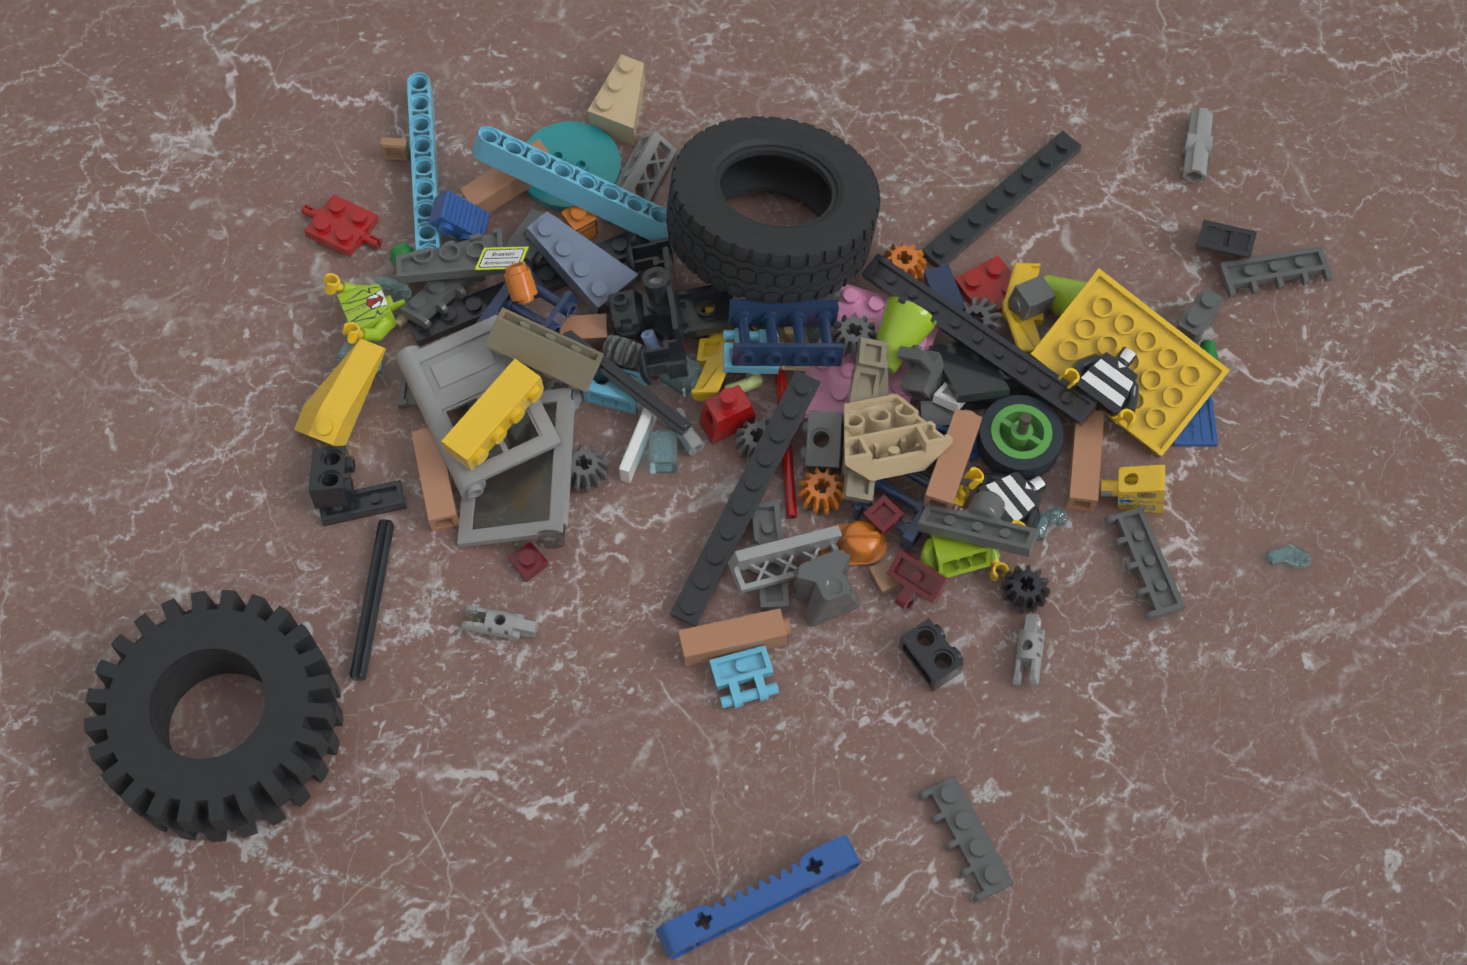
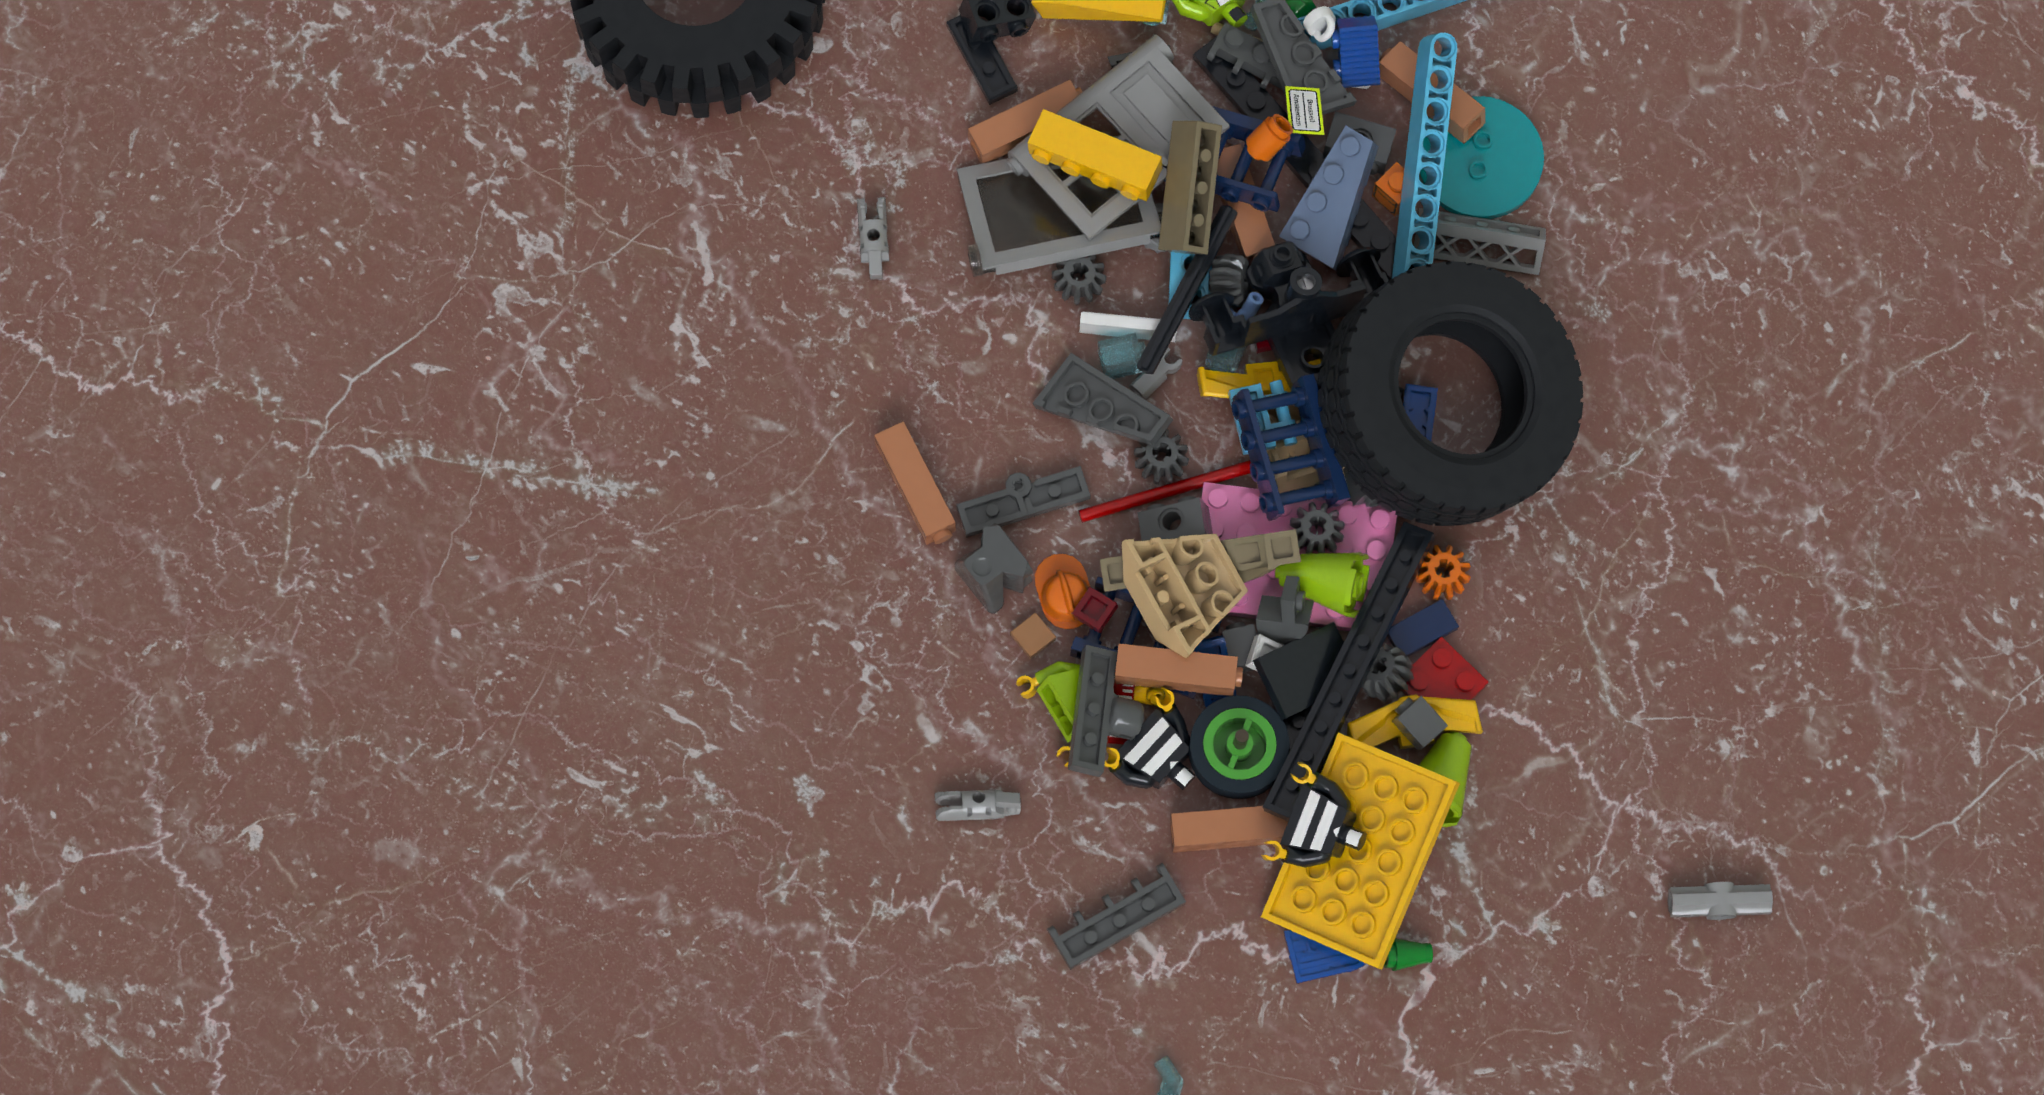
camera: 75 degrees right, 10 degrees up
(371, 600) = (872, 100): black axle -> none
(426, 234) = (1320, 21): none -> white tile
(528, 561) = (953, 248): dark red plate -> none
(619, 101) = (1585, 190): tan wedge -> none
(683, 934) = (691, 639): blue gear -> none
(698, 476) = (1099, 401): none -> dark grey wing
(725, 414) = (1188, 416): red torso -> none
(742, 668) = (883, 501): medium azure plate -> none
(745, 499) = (1084, 457): black plate -> none
(748, 384) = (1227, 422): yellowish green arm -> none
(778, 551) = (1024, 509): light grey fence -> none
(811, 495) = (1102, 535): orange gear -> none
(917, 579) = (1028, 663): dark red plate -> none
(924, 657) = (939, 694): black brick -> none
(969, 837) = (750, 778): dark grey hinge -> none
(1001, 200) = (1574, 675): black plate -> none
(1015, 584) = (1055, 797): black gear -> none
(1049, 517) = (1148, 800): clear light blue arm -> none
(1138, 488) = (1204, 892): yellow torso -> none
(1200, 315) = (1464, 935): dark grey brick -> none
(1226, 238) = (1580, 950): black brick -> none
(1274, 269) = (1558, 1018): dark grey hinge -> none

